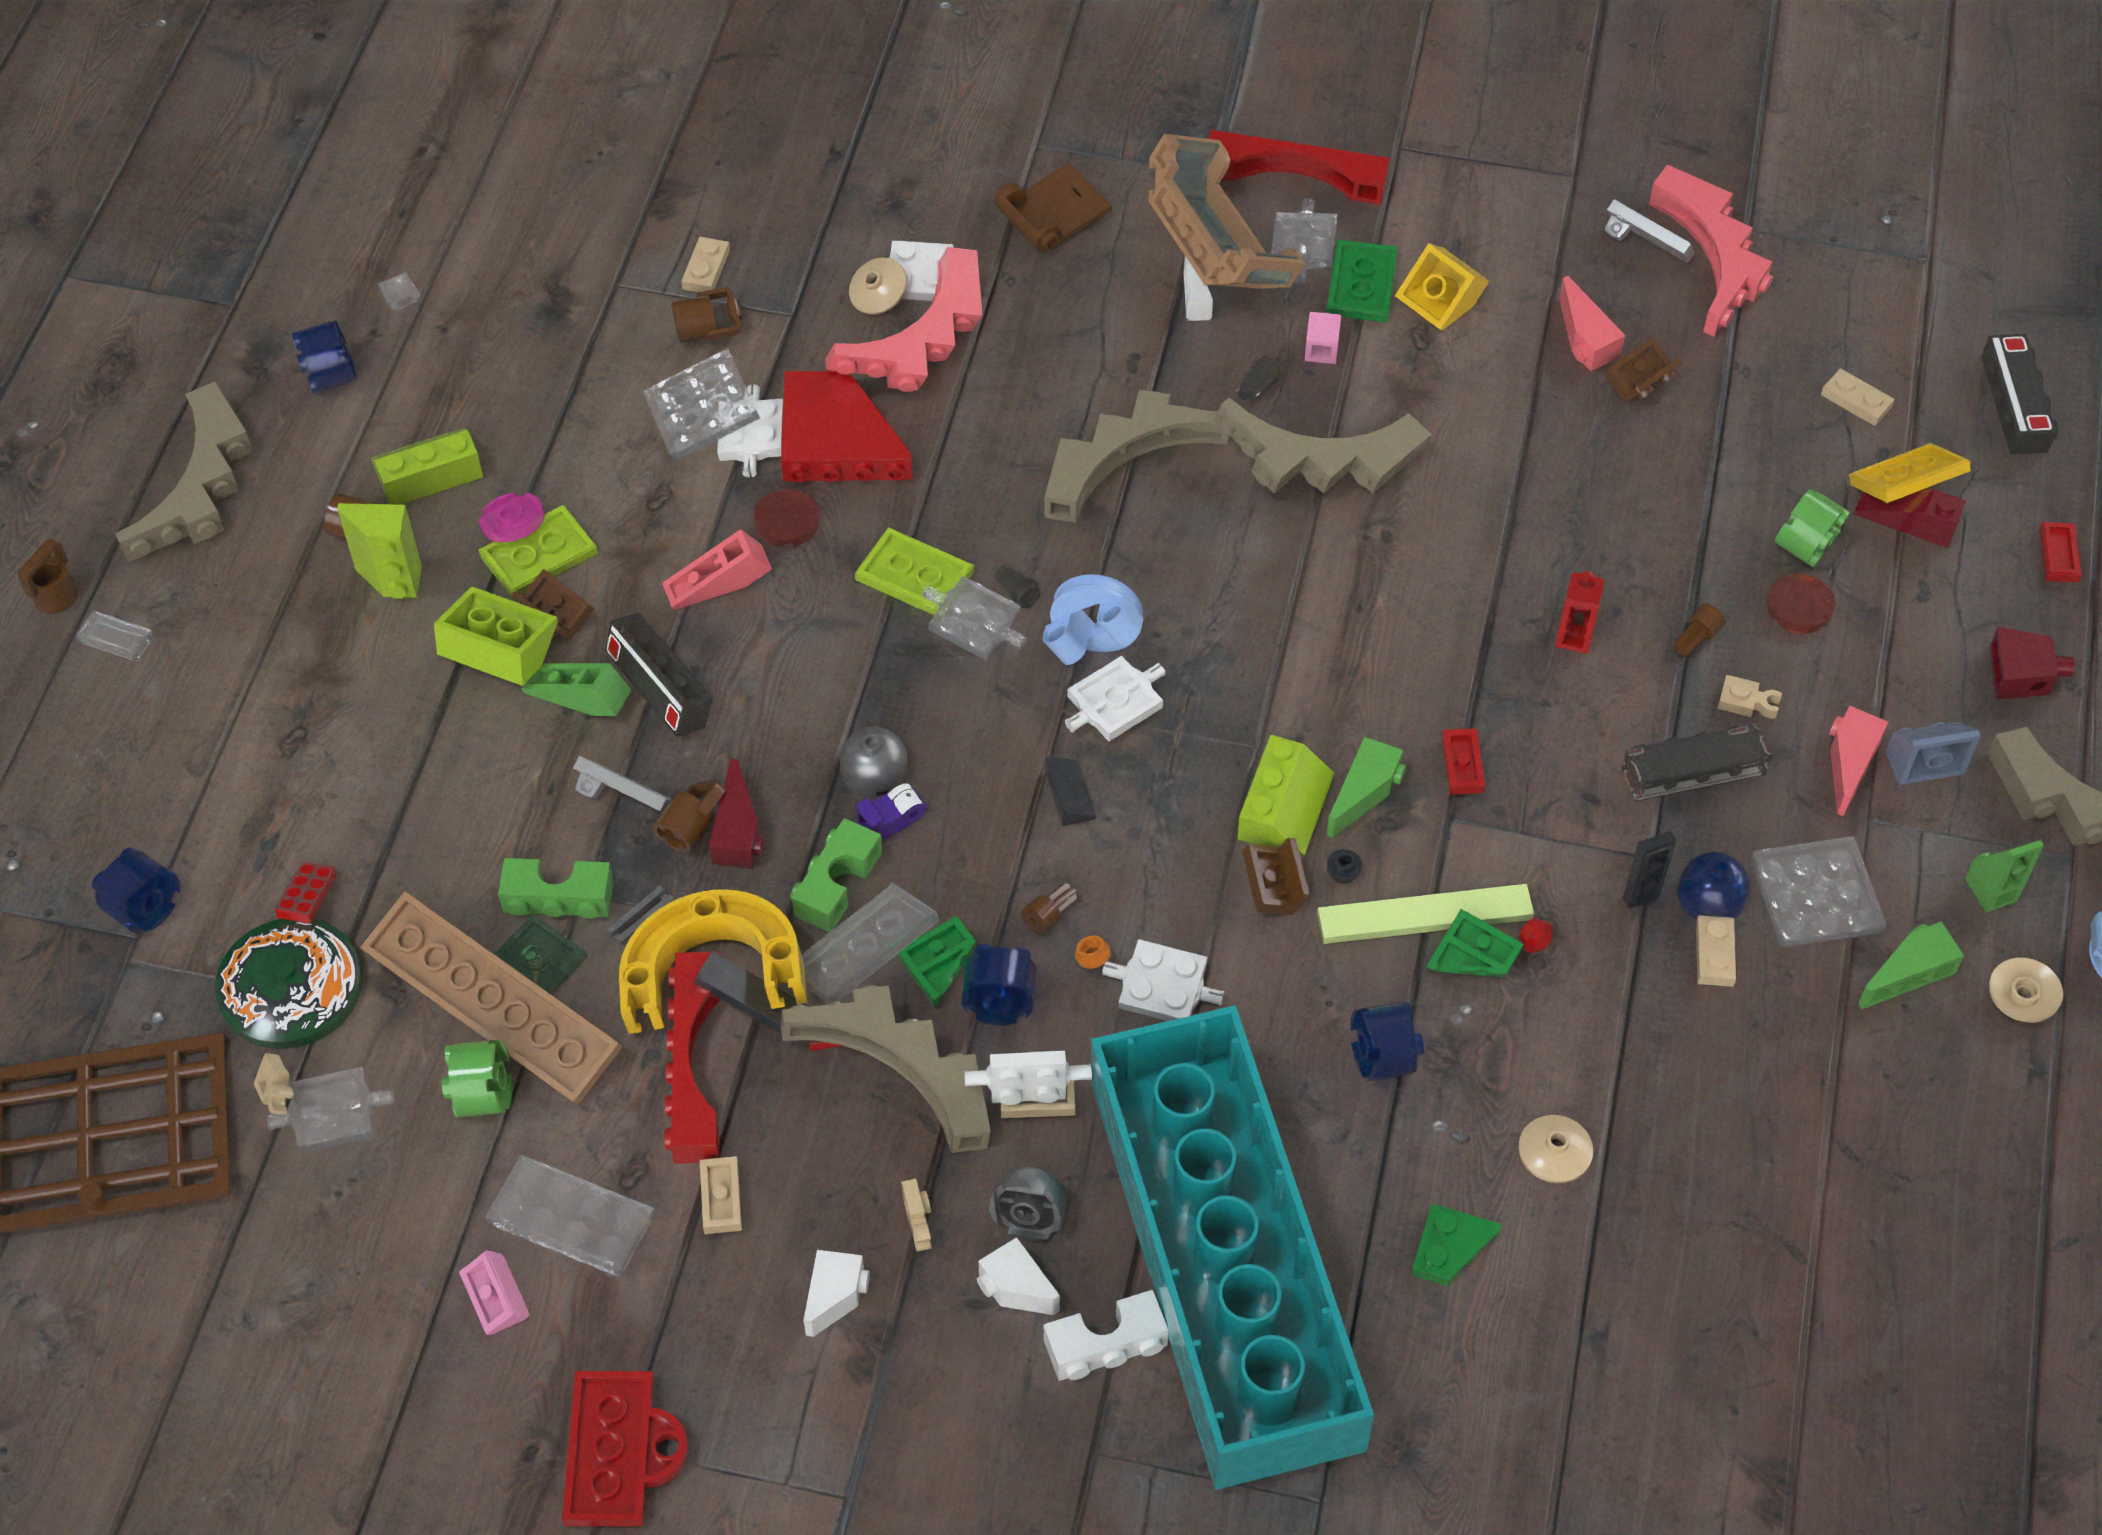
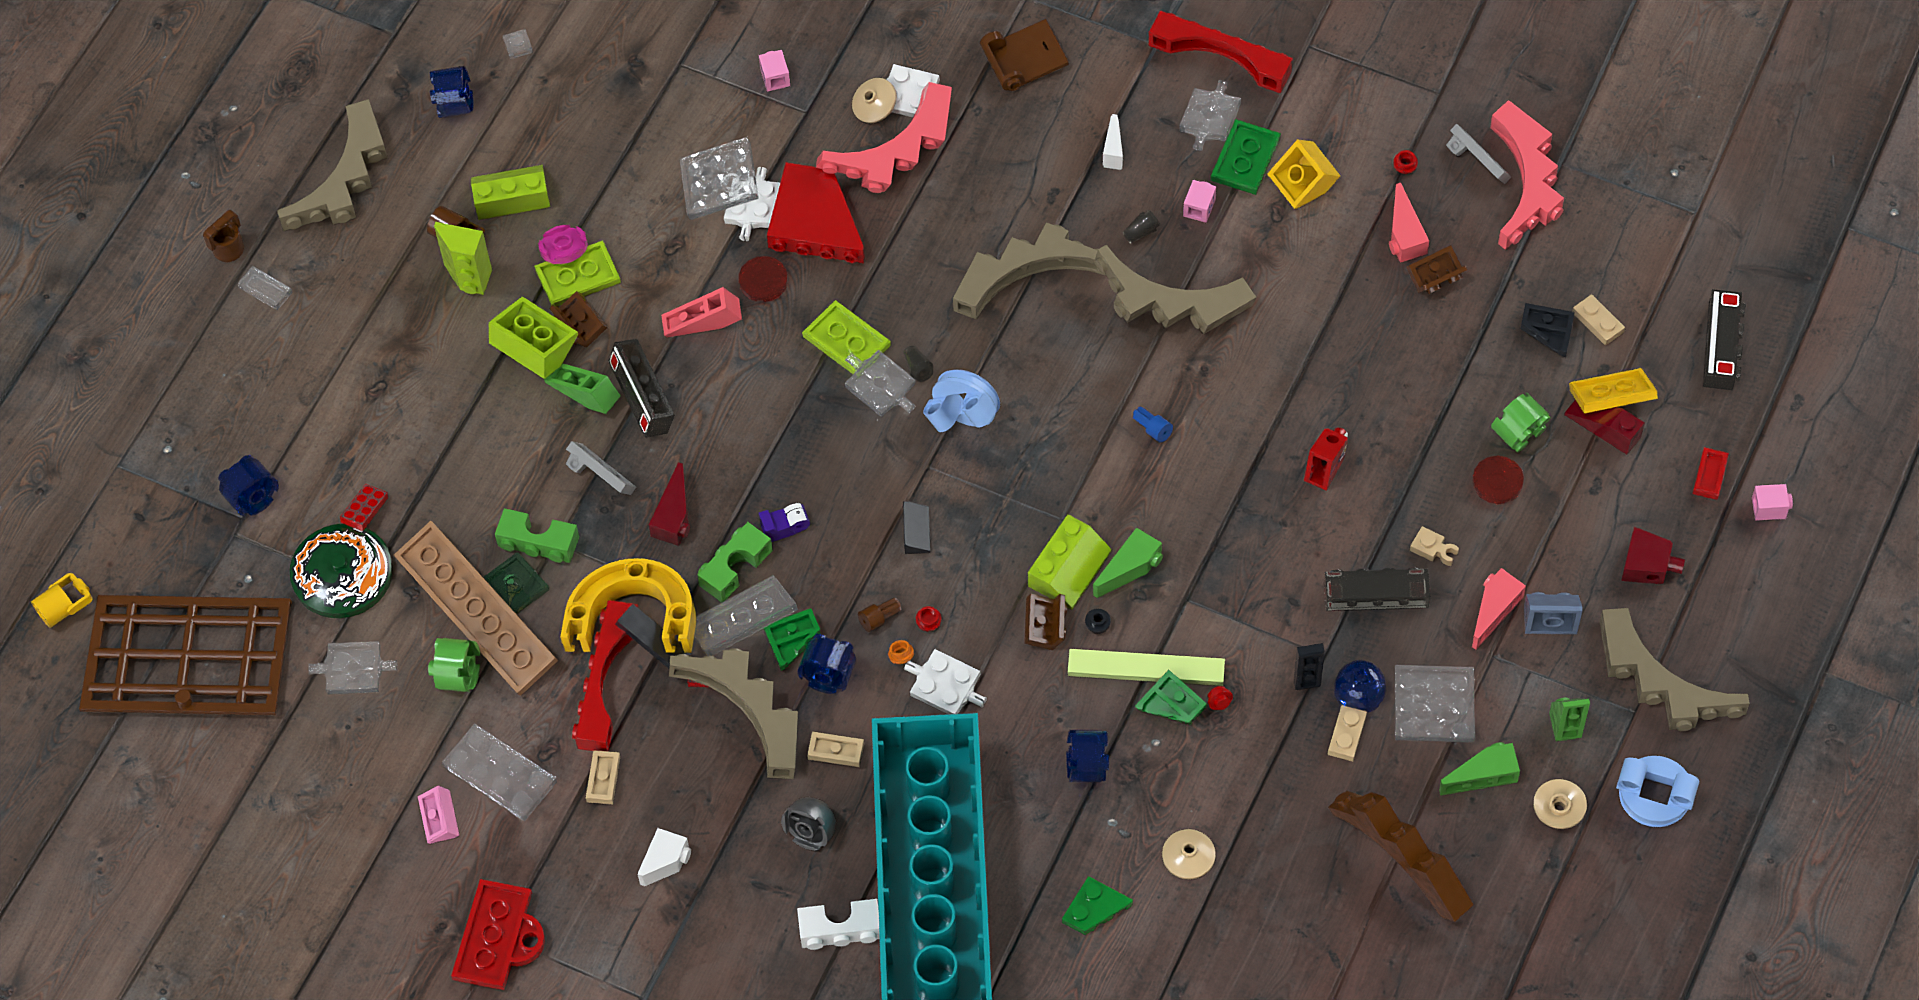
camera: 15 degrees right, 5 degrees up
(273, 1083) = (317, 642): tan plate -> none
(625, 927) = (578, 573): flat silver tile -> none
(687, 816) = (638, 500): reddish brown piece -> none
(696, 318) = (731, 104): reddish brown piece -> none
(705, 265) = (747, 62): tan plate -> none
(741, 271) = (774, 70): none -> bright pink brick
(873, 761) = (781, 481): flat silver cylinder -> none
(916, 1207) = (733, 810): tan plate -> none
(1017, 1280) = (788, 874): white slope -> none
(1028, 1076) = (827, 735): white plate -> none
(1115, 698) = (966, 464): white plate -> none
(1117, 902) = (928, 618): none -> red plate
(1207, 222) = (1135, 89): medium nougat windscreen -> none
(1348, 610) = (1155, 426): none -> blue piece
(1463, 761) = (1206, 558): red plate -> none
(1561, 255) = (1405, 156): none -> red plate
(1702, 625) = (1417, 483): reddish brown piece -> none
(1802, 413) = (1548, 326): none -> black wing
(1854, 1076) = (1403, 842): none -> reddish brown arch

